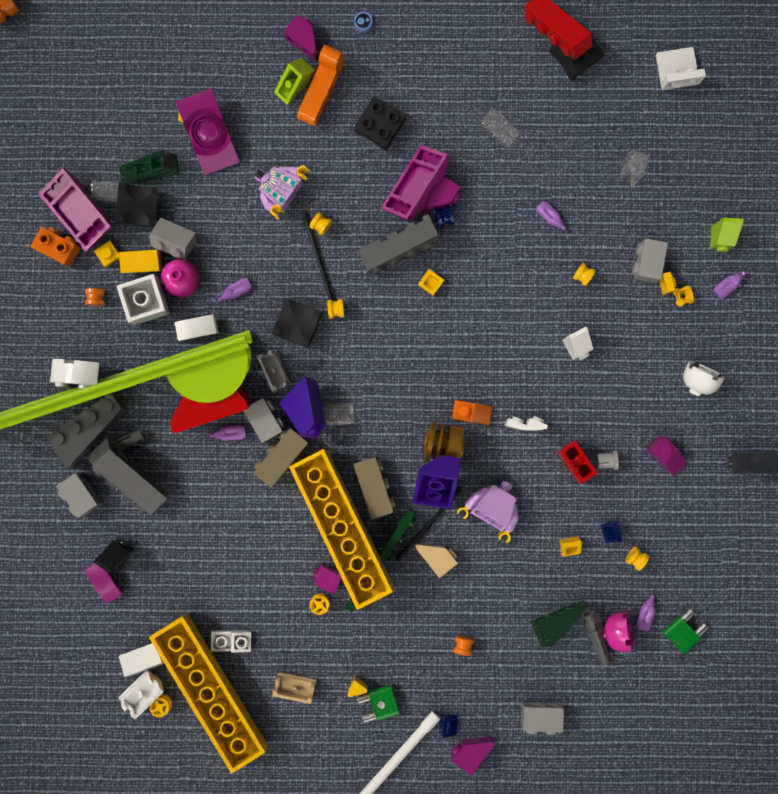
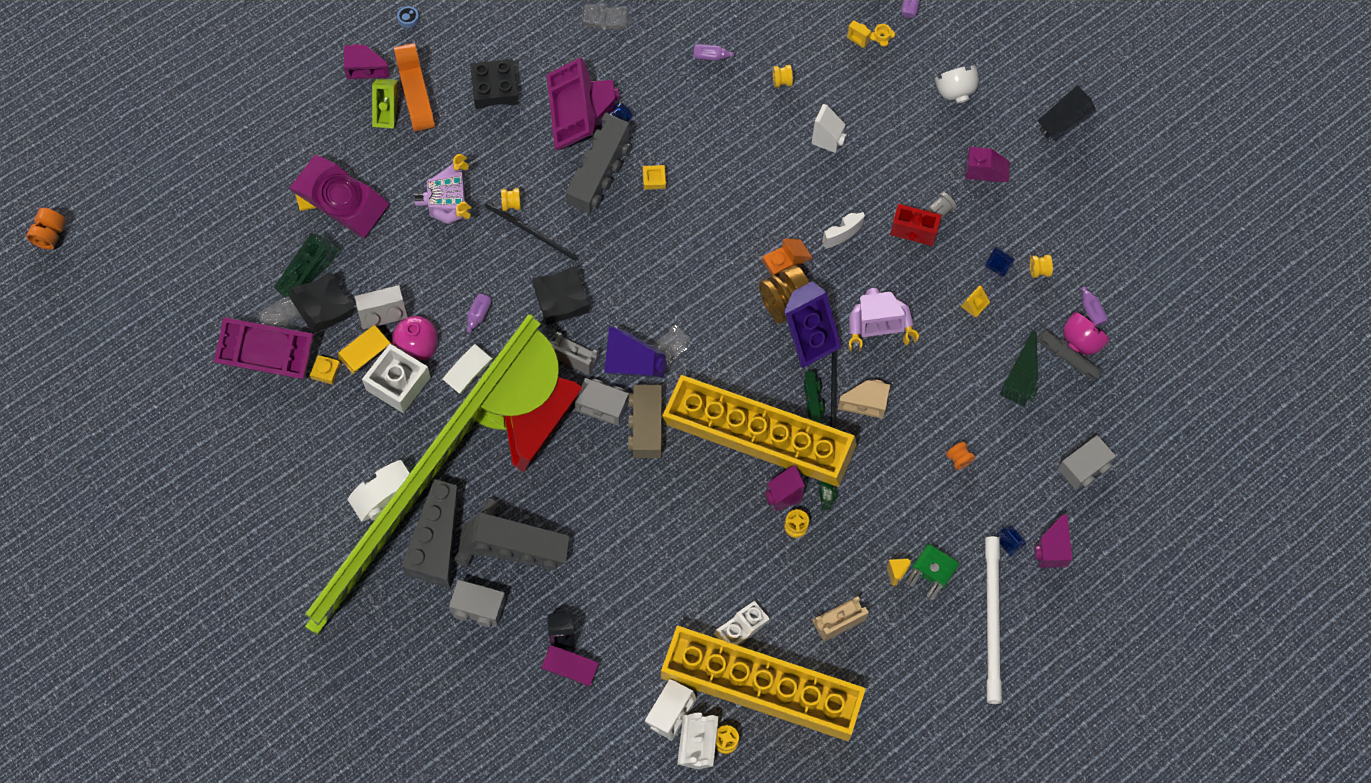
camera: 45 degrees left, 20 degrees down
(52, 245) = (268, 397): orange brick -> none
(94, 297) = (345, 413): orange wheel -> none
(230, 433) = (579, 438): medium lavender piece -> none
(335, 308) = (586, 258): yellow wheel -> none
(374, 487) = (755, 381): dark tan brick -> none
(650, 260) = (828, 26): light grey brick -> none
(682, 634) = (1138, 300): green piece -> none

